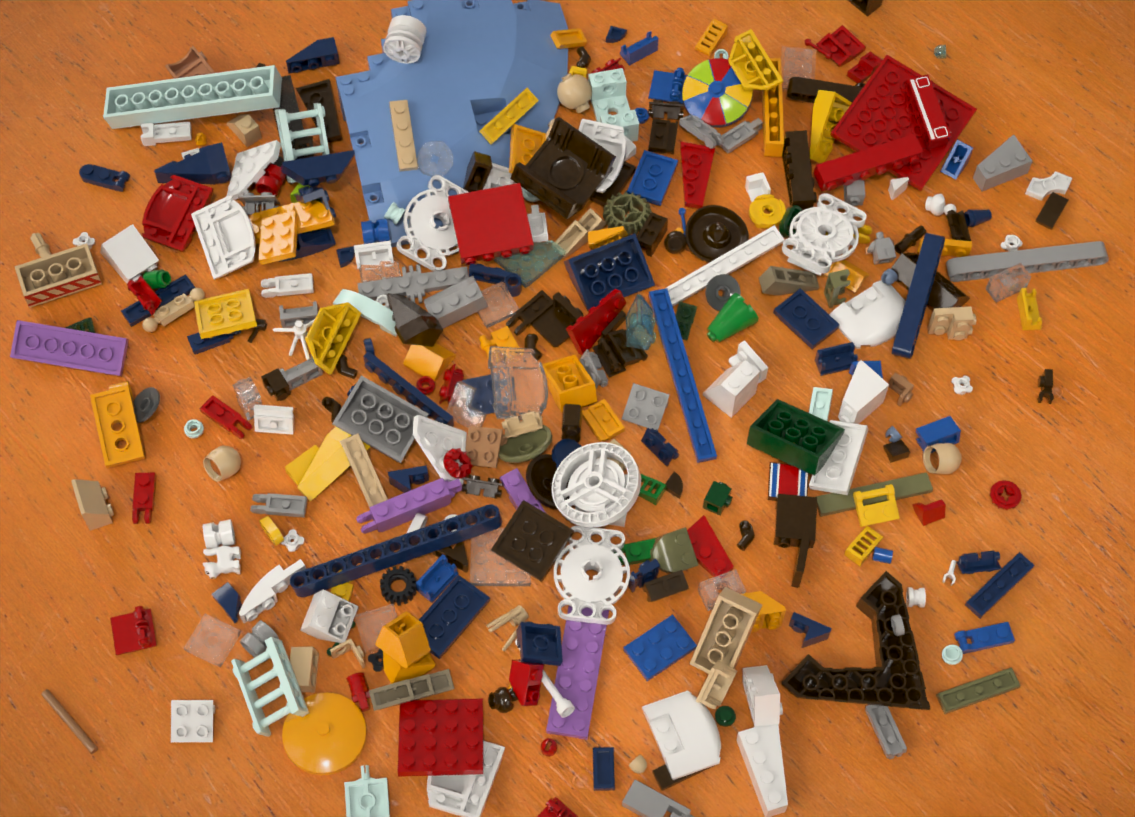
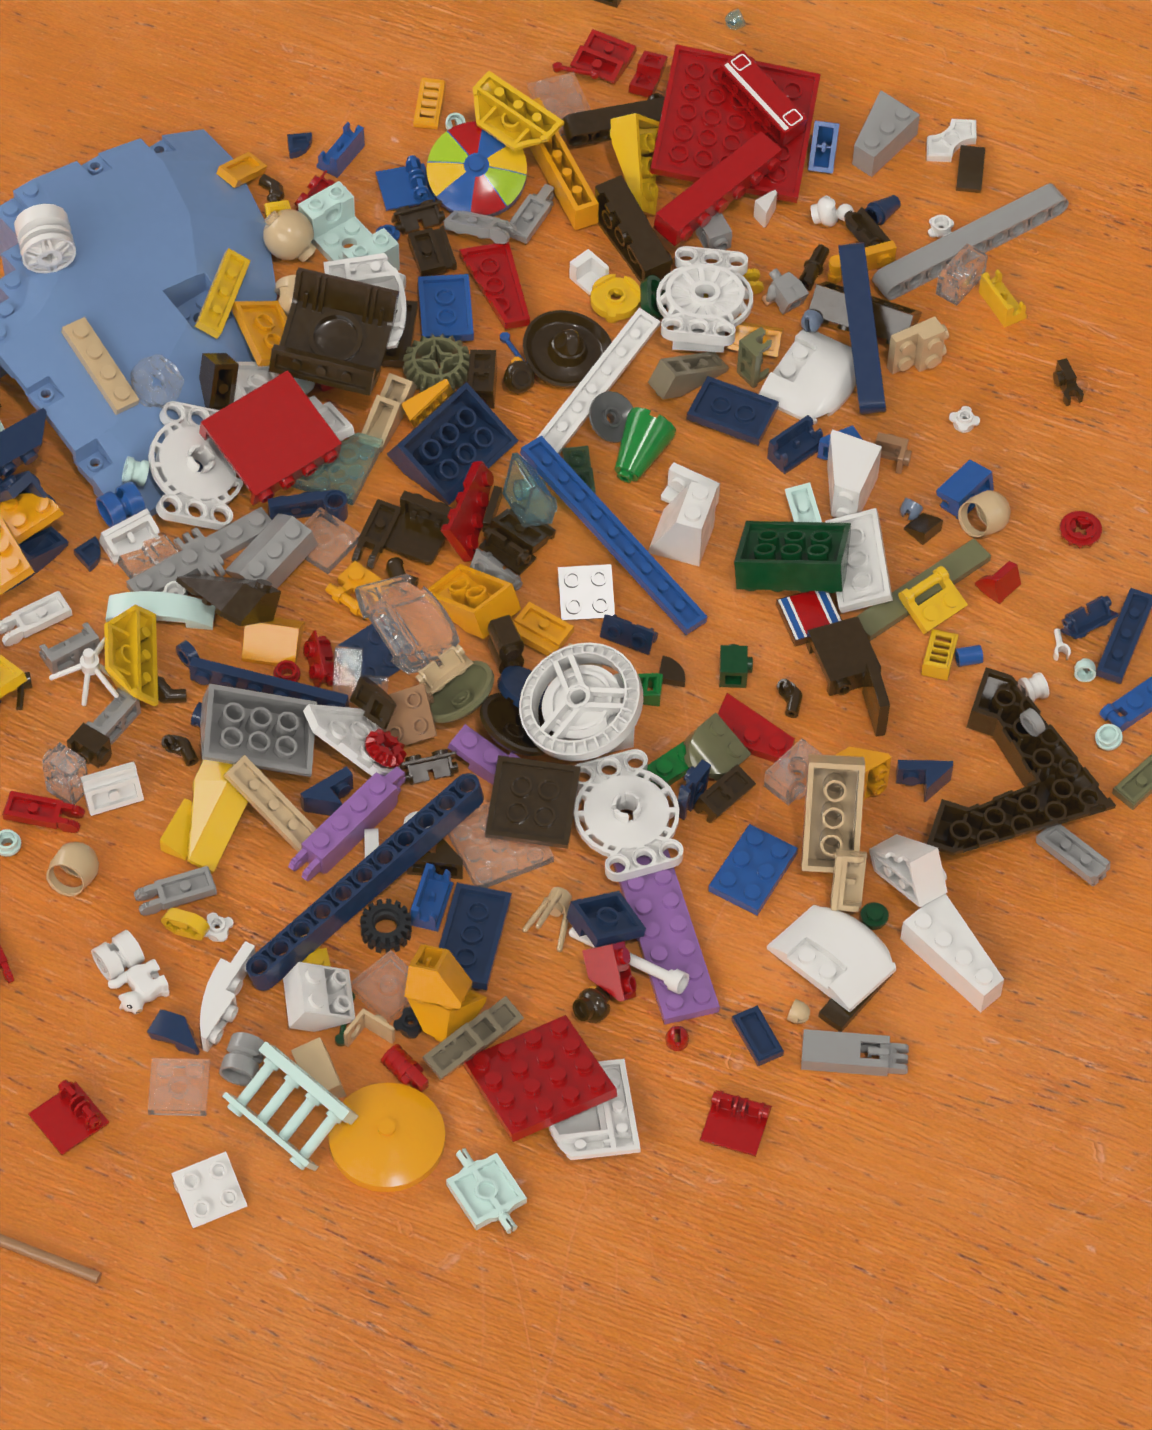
camera: 25 degrees left, 5 degrees down
(467, 428) = (374, 701): none -> dark brown slope
(958, 598) = (1081, 670): none -> light aqua hinge

